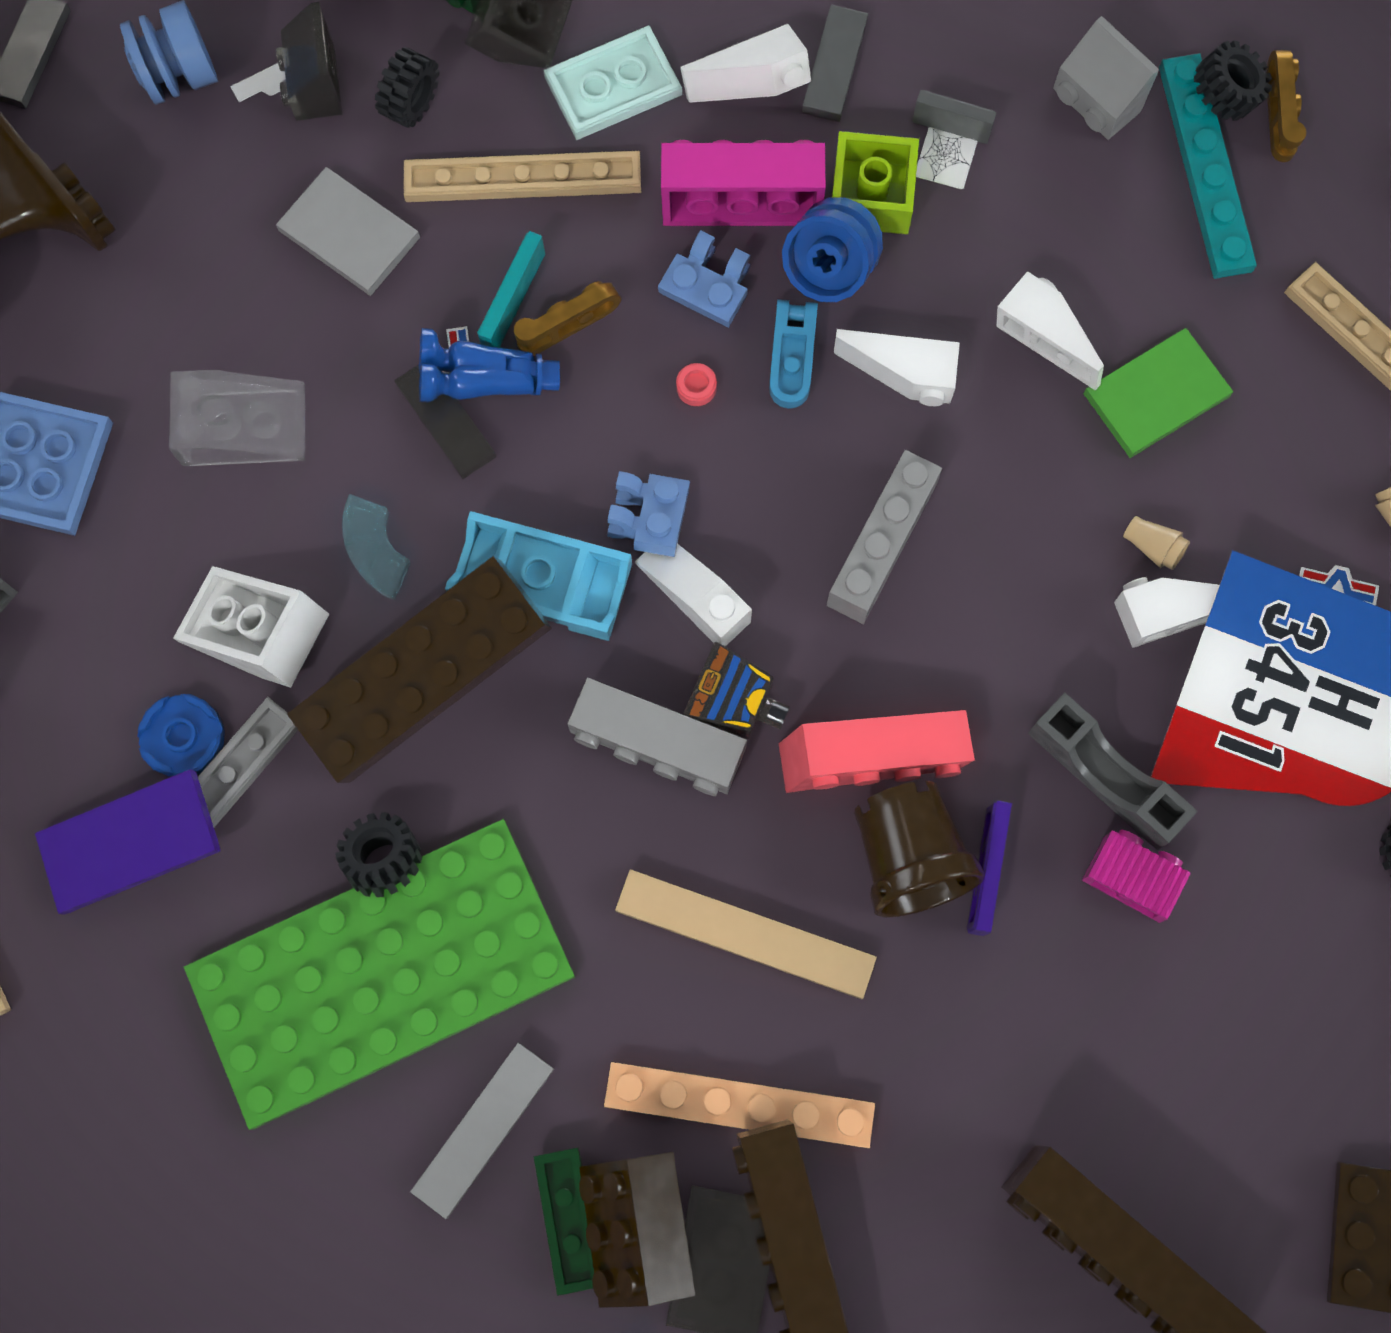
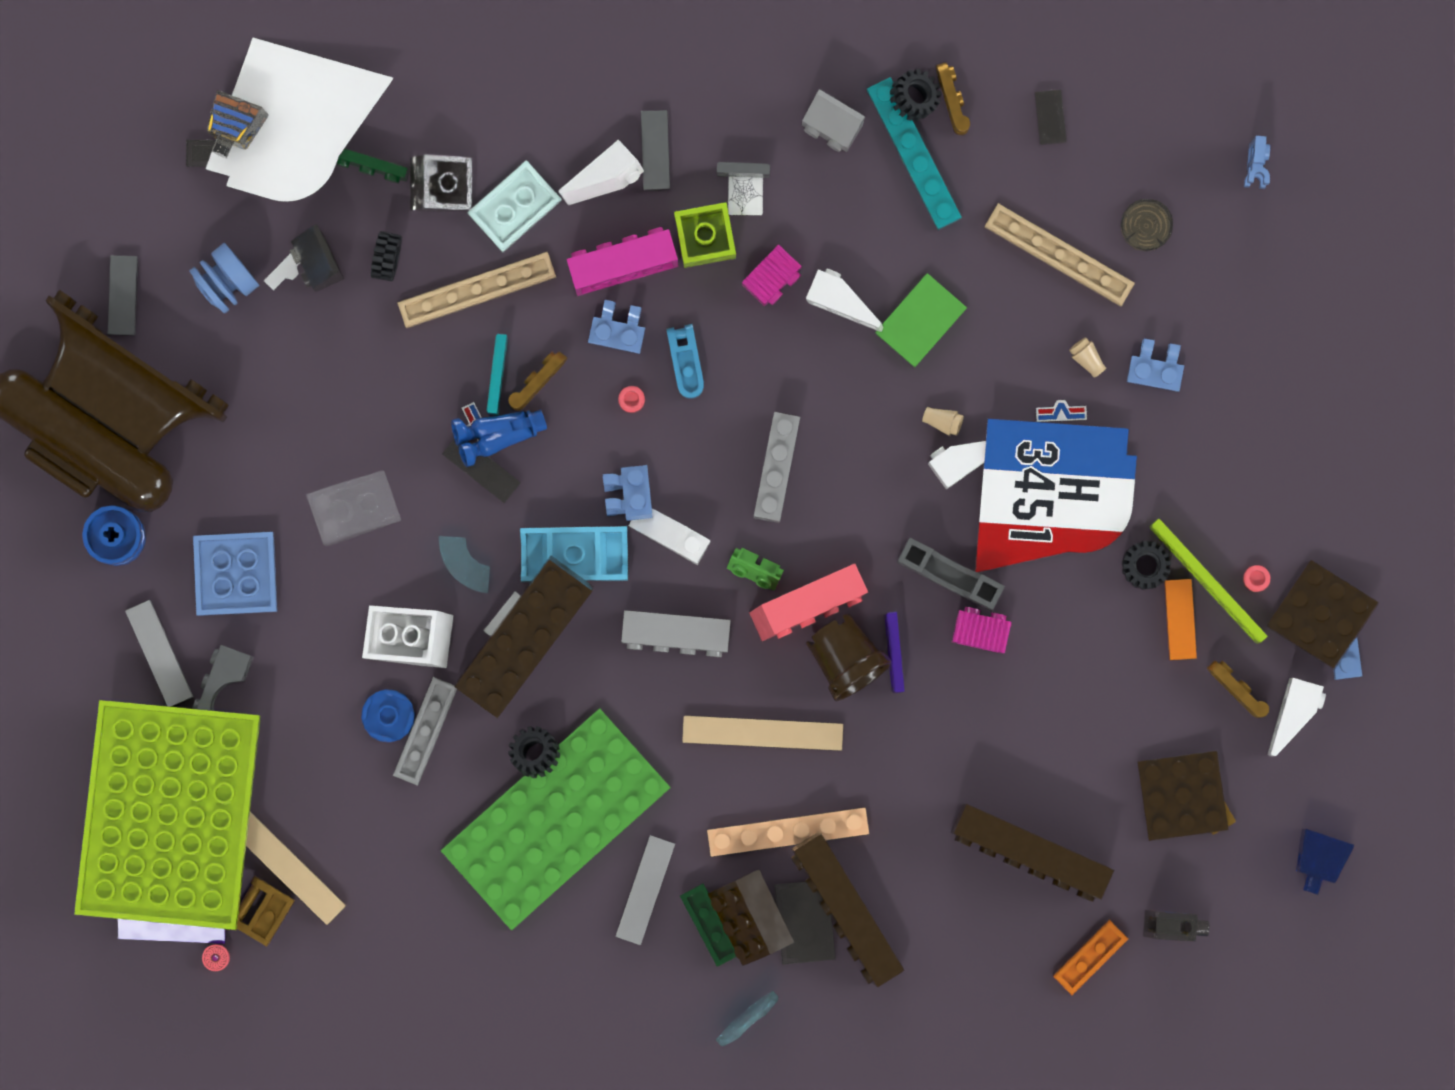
camera: 20 degrees left, 10 degrees up
(127, 842) = (381, 788): dark purple tile -> none
(348, 231) = (377, 361): light grey tile -> none
(734, 695) = (714, 594): torso -> none
(791, 667) = (743, 565): none -> bright green hinge
(832, 249) = (692, 293): blue wheel -> none
(909, 365) = (764, 350): white slope -> none
(954, 268) = (771, 276): none -> dark pink brick

